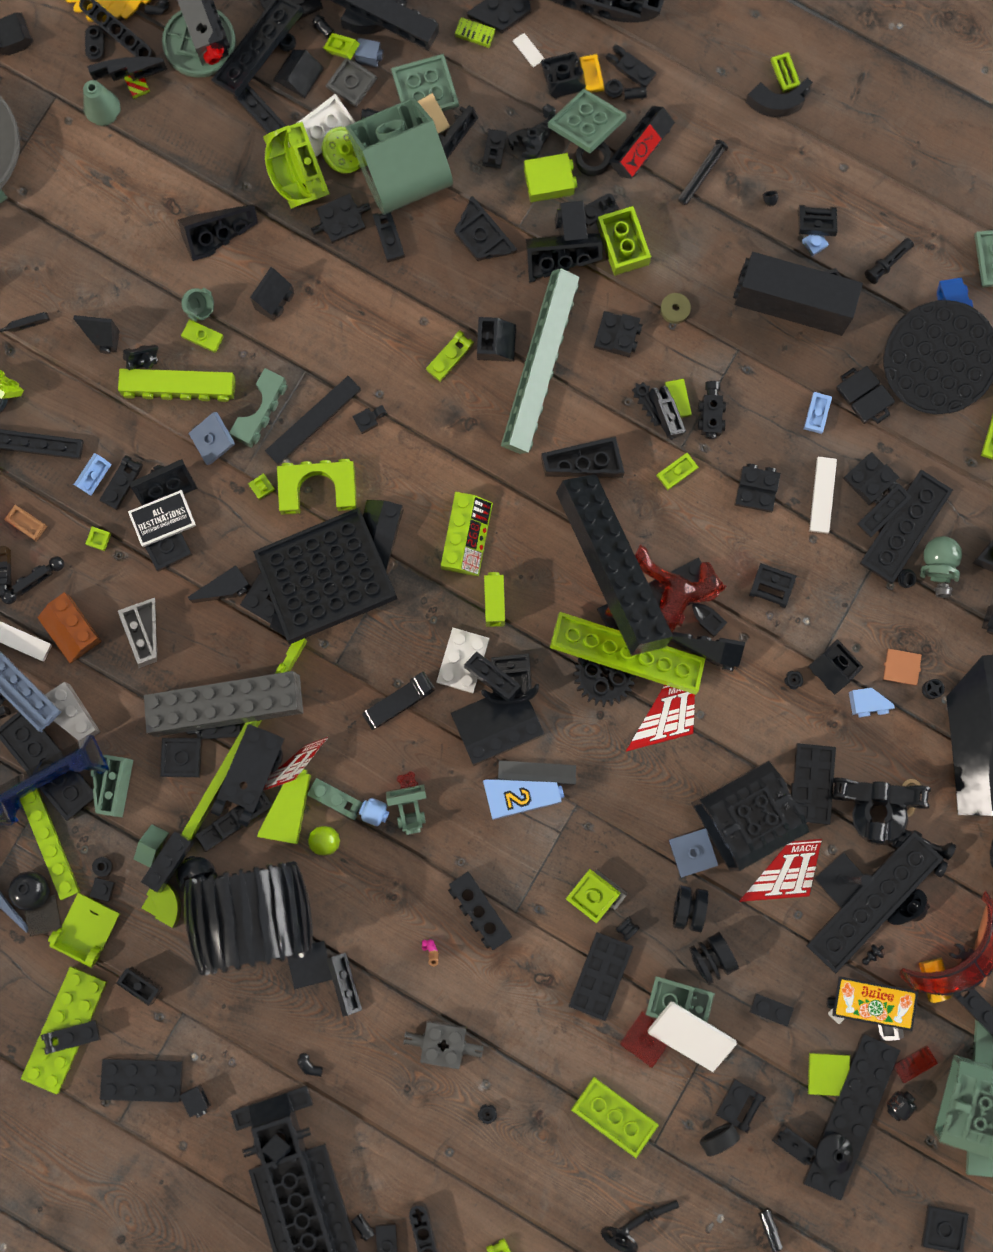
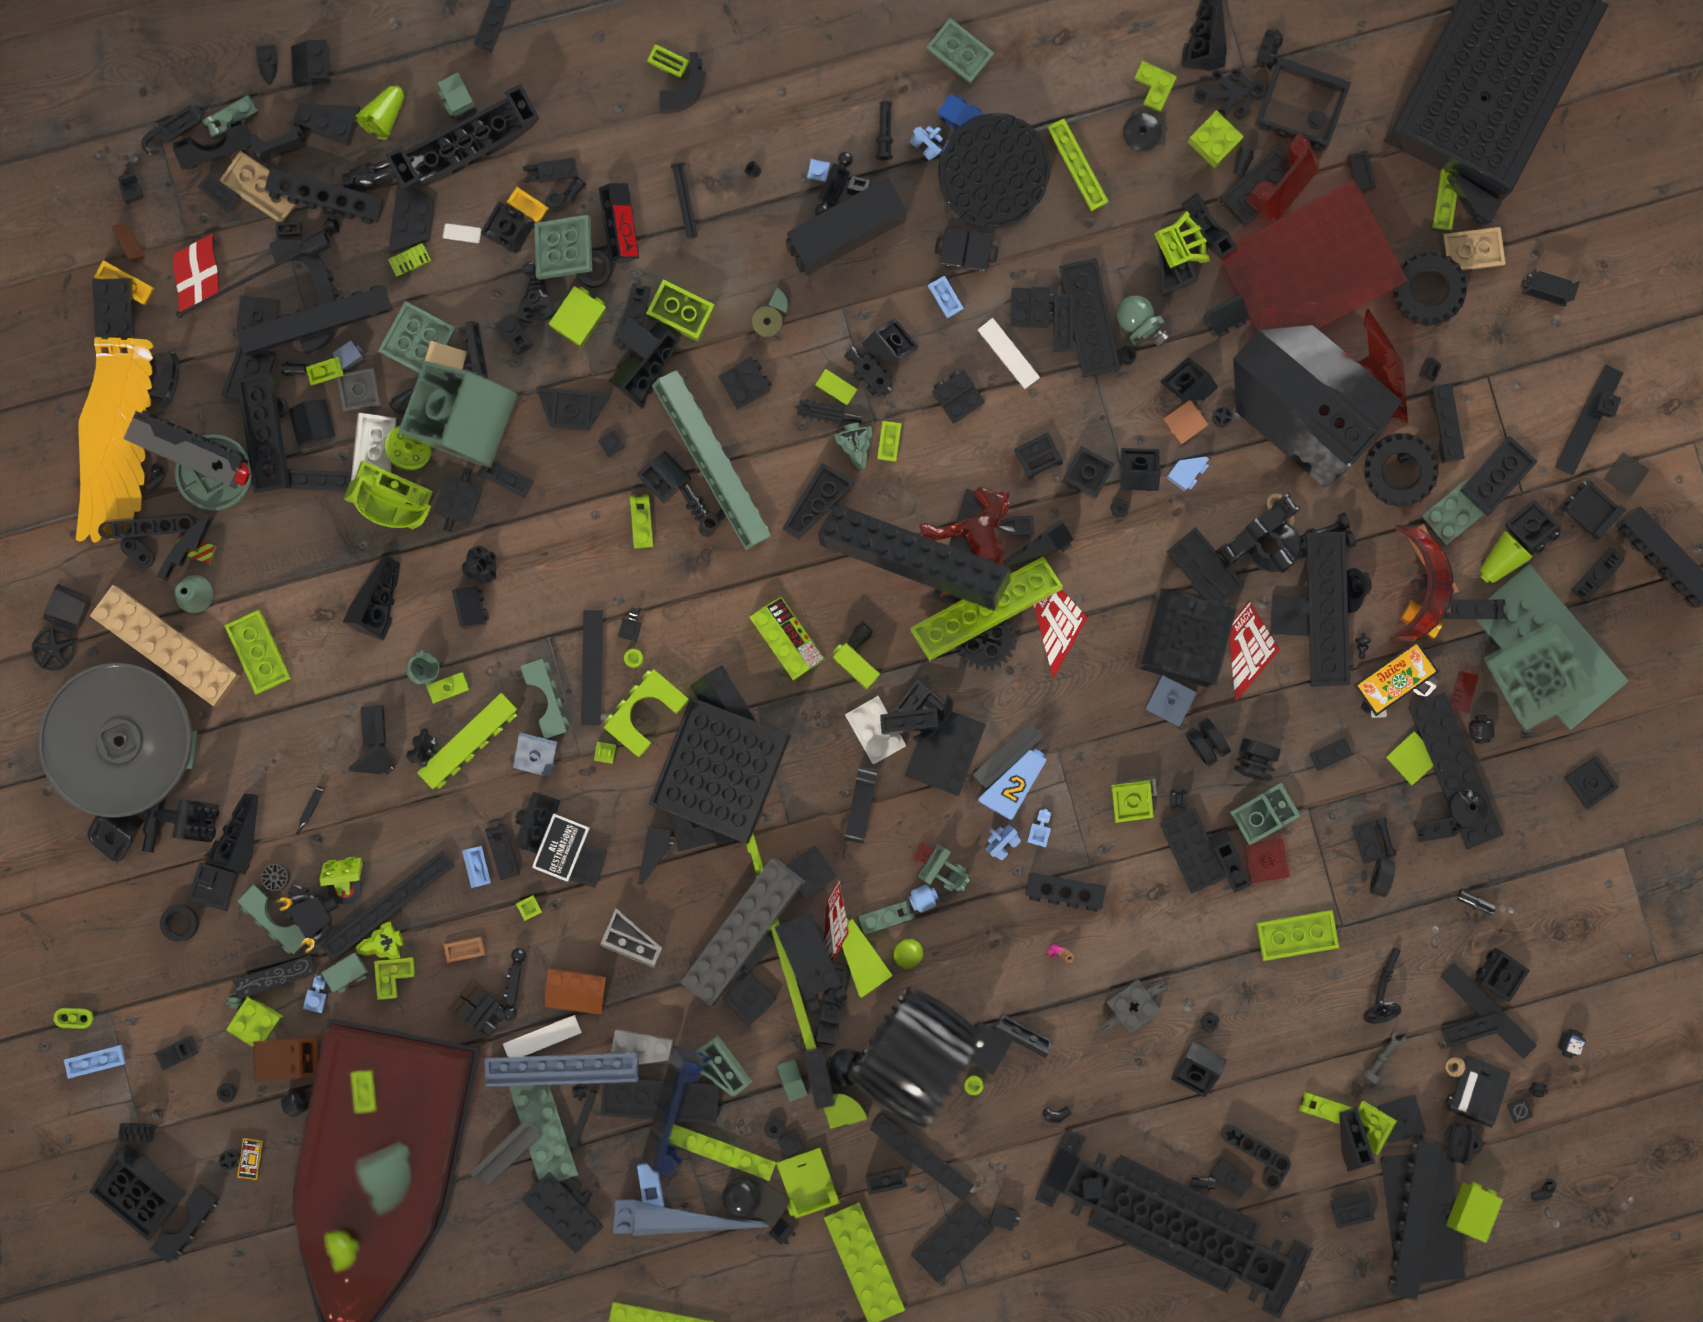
camera: 45 degrees left, 5 degrees up
(30, 945) = (781, 1232): none -> black tile
(45, 120) = (165, 646): none -> tan brick
(71, 1036) = (875, 1261): black plate -> none
(102, 186) = (257, 652): none -> lime tile
(127, 310) = (373, 725): none -> black panel
(183, 996) = (922, 1157): none -> black plate
(272, 982) = (973, 1085): none -> lime tile
(310, 274) = (480, 565): none -> black plate
(318, 712) = (813, 869): none -> black brick
(348, 442) = (633, 658): none -> lime tile
(444, 1141) = (1199, 1069): none -> black slope
(471, 825) = (999, 839): none -> light blue hips
(483, 284) = (611, 443): none -> black plate
(496, 390) = (702, 515): none -> black piece
(503, 850) = (1039, 833): none -> light blue plate
(519, 584) = (860, 636): none -> black cone
(620, 1011) = (1230, 860): none -> black slope
(652, 449) = (855, 443): none -> sand green rock
(667, 411) = (839, 405): black hinge -> none
(692, 1036) = (1295, 828): white tile -> none
(698, 302) = (779, 301): none -> sand green tile
(747, 403) = (890, 342): none -> black slope
(797, 631) = (1088, 472): none -> black brick
(812, 224) = (807, 157): black plate -> none
(824, 258) = (834, 183): none -> black plate
(910, 287) = (921, 136): none -> light blue hips
(935, 641) = (1189, 381): none -> black slope

